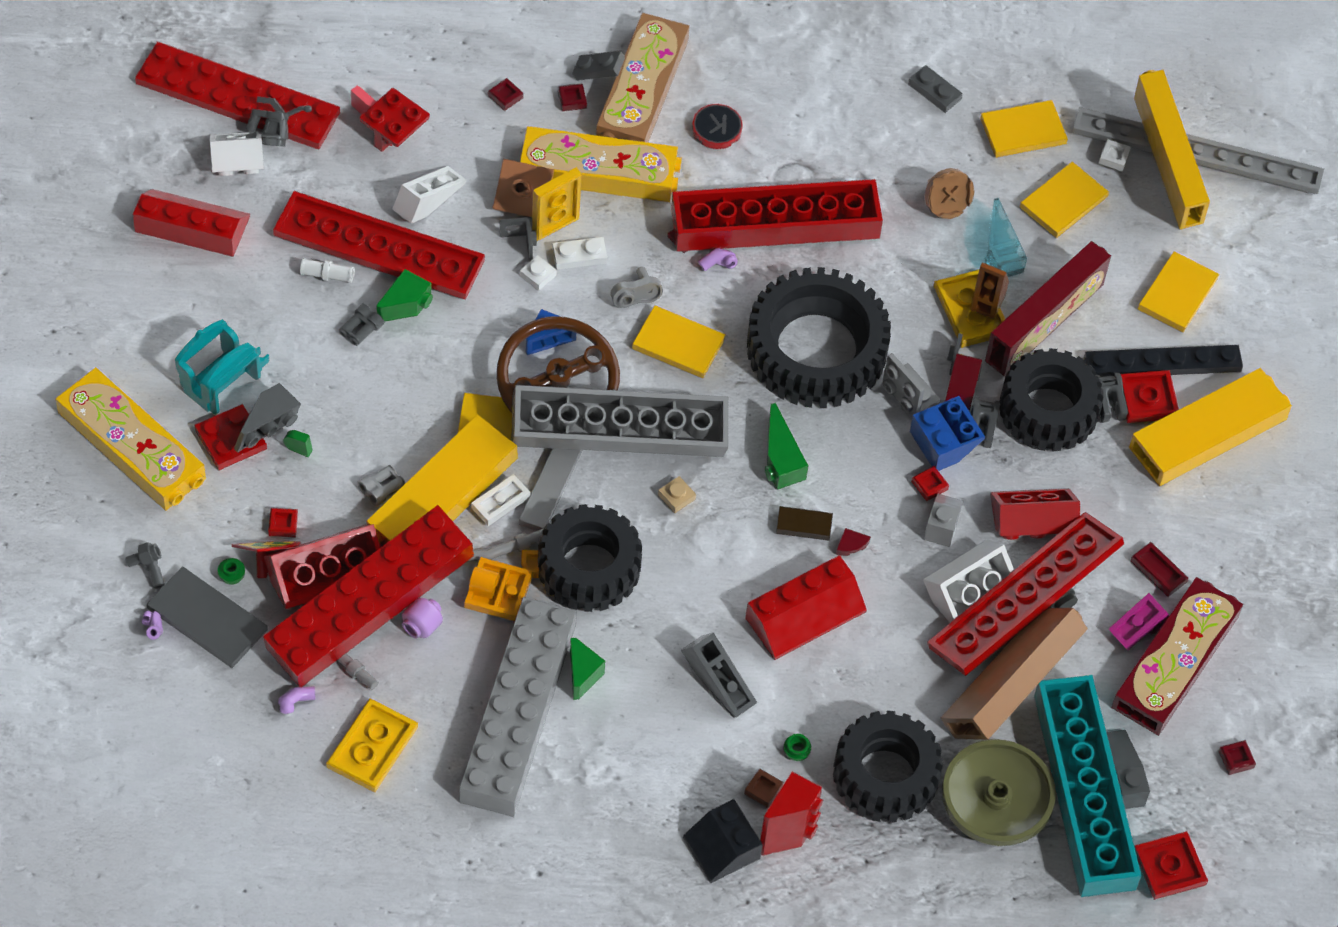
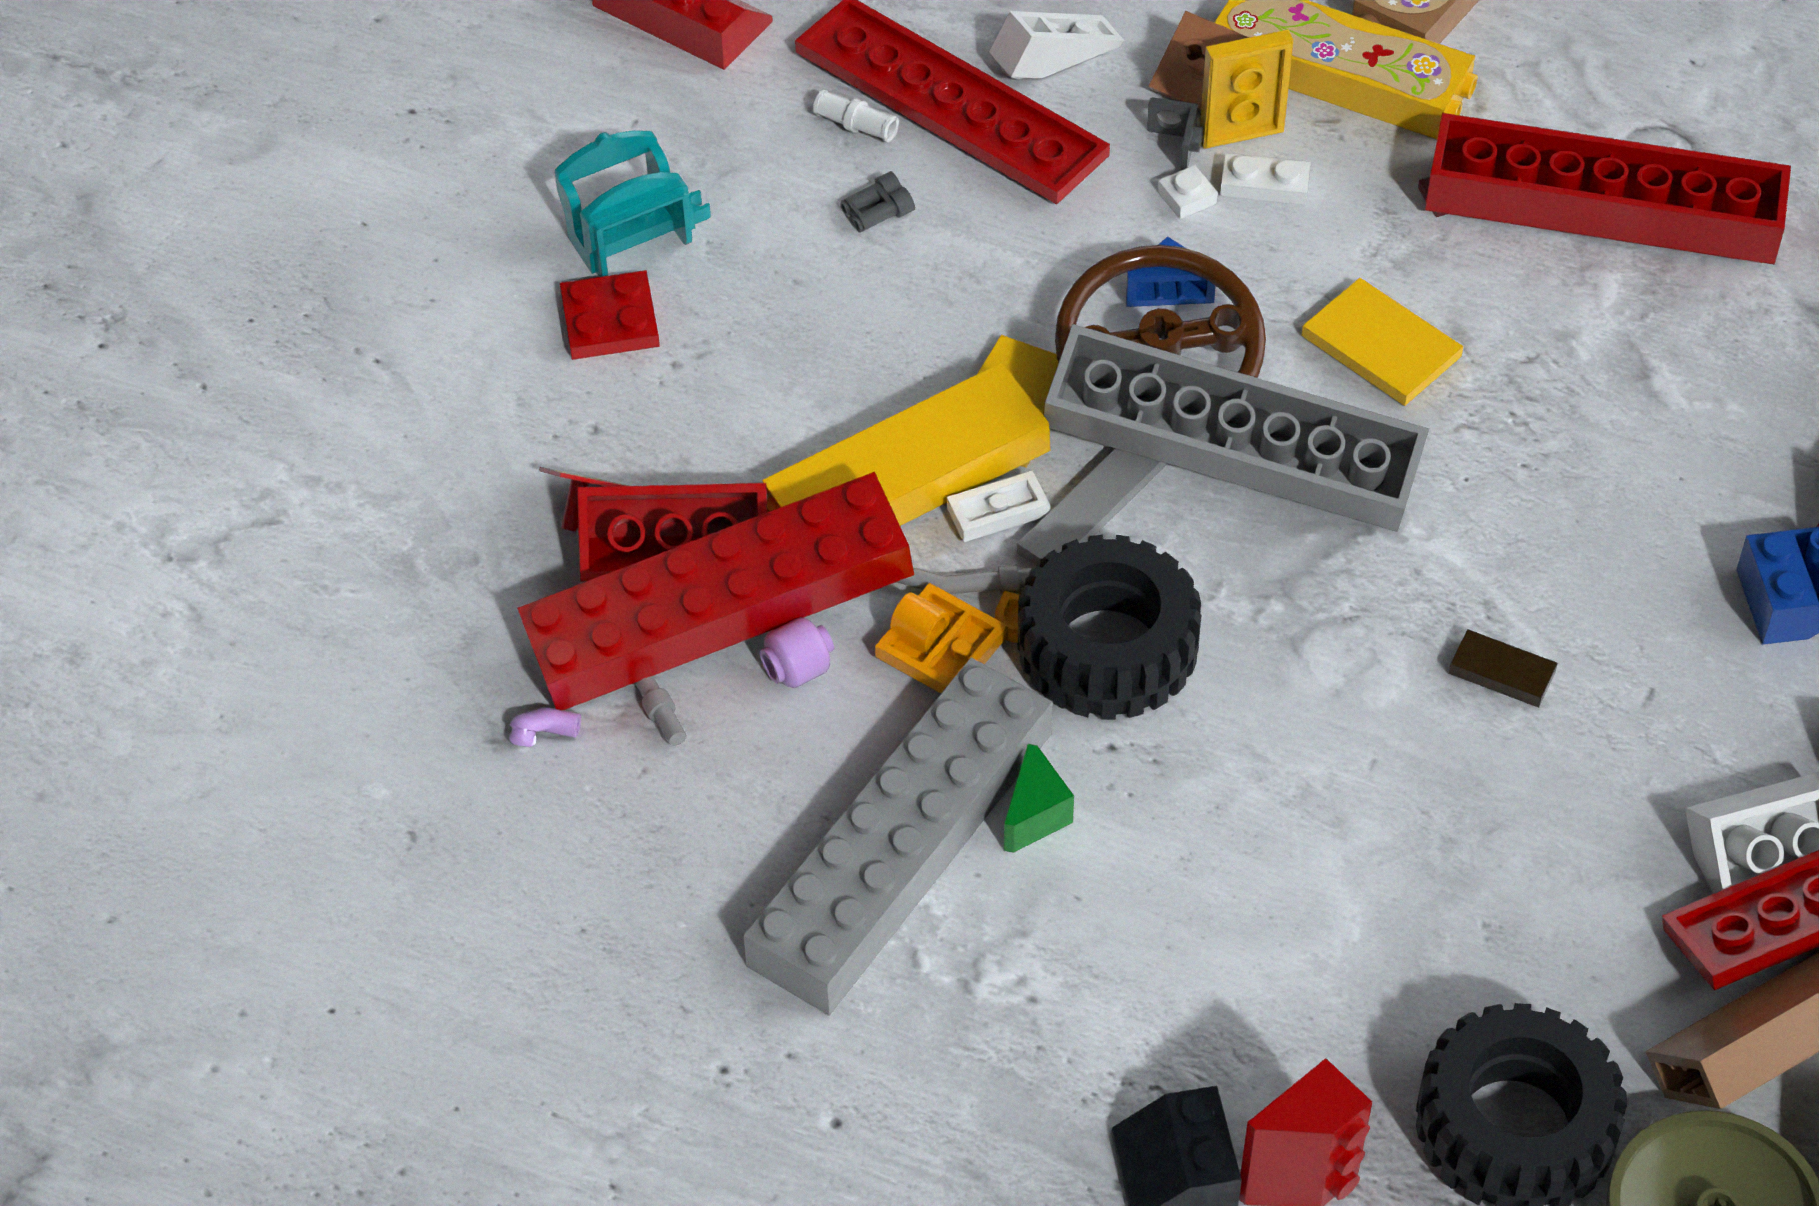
camera: 25 degrees right, 5 degrees down
(131, 439) = (454, 280): brick -> none
(148, 555) = (404, 453): dark grey piece -> none
(154, 621) = (366, 556): lavender arm -> none
(207, 617) = (456, 566): dark grey tile -> none
(231, 577) = (522, 516): green plate -> none
(271, 412) = (670, 291): dark grey slope -> none
(283, 522) = (637, 457): red tile -> none
(298, 442) = (708, 345): green tile -> none
(372, 745) = (637, 833): yellow tile -> none
(374, 490) = (798, 435): light grey piece -> none
(405, 297) = (959, 178): green slope -> none
(644, 290) = (1347, 251): light grey piece -> none
(677, 494) = (1297, 570): tan plate -> none
(717, 126) = (1553, 48): black tile -> none
(719, 674) = (1268, 872): dark grey slope -> none
(720, 257) = (1491, 231): lavender arm -> none
(763, 788) = (1275, 1078): copper tile -> none
(784, 459) = (1500, 554): green slope -> none
(797, 740) = (1372, 1021): green plate -> none
(806, 607) = (1460, 802): red slope -> none
(827, 297) = (1634, 320): black tyre -> none
(852, 542) = (1577, 719): dark red tile -> none
(907, 387) = (1750, 490): light grey bracket -> none
(930, 483) = (1747, 659): red tile -> none
(943, 520) = (1752, 722): light grey slope -> none

